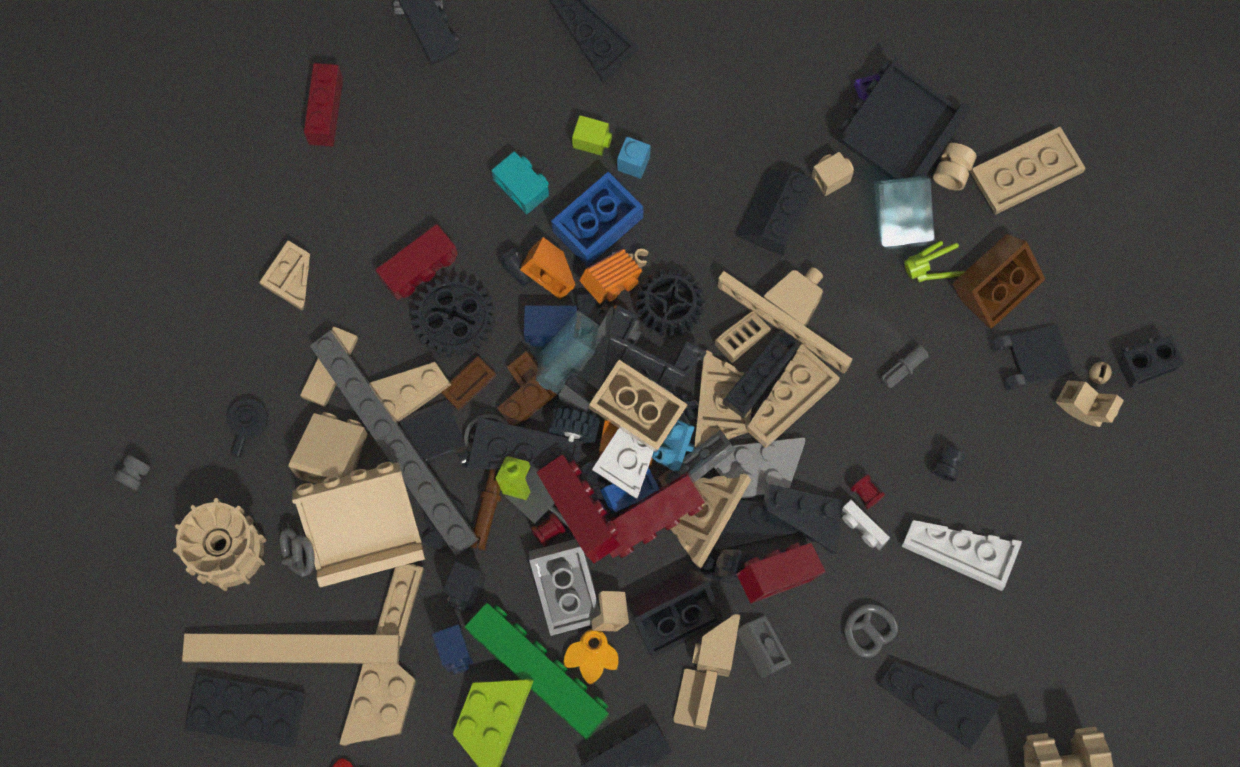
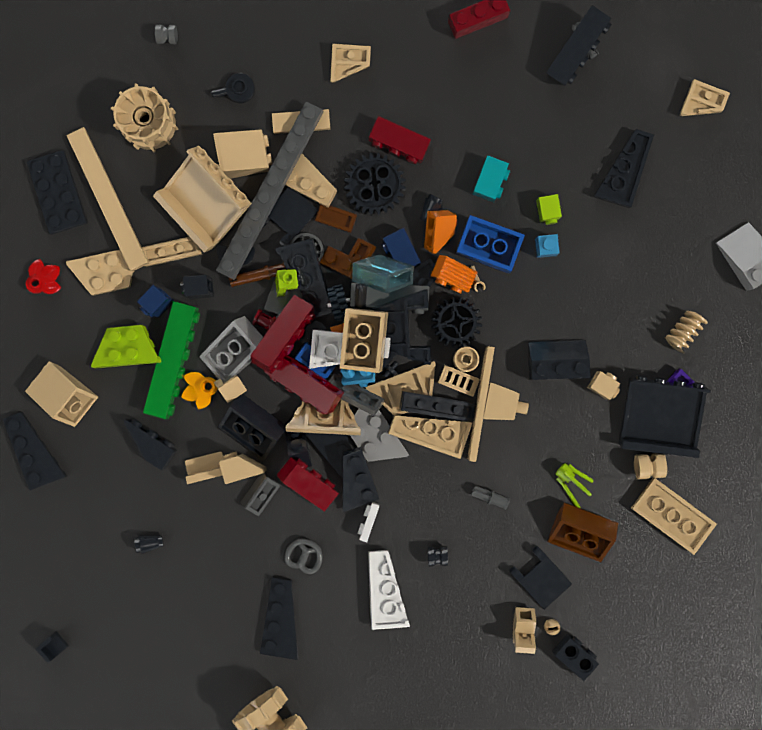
camera: 60 degrees right, 15 degrees up
(295, 561) = (167, 168): dark grey piece -> none
(721, 312) = (466, 359): none -> tan wheel
(812, 57) = (685, 330): none -> tan piece
(868, 491) = (392, 513): dark red bush -> none
(904, 211) = (598, 447): clear light blue brick -> none

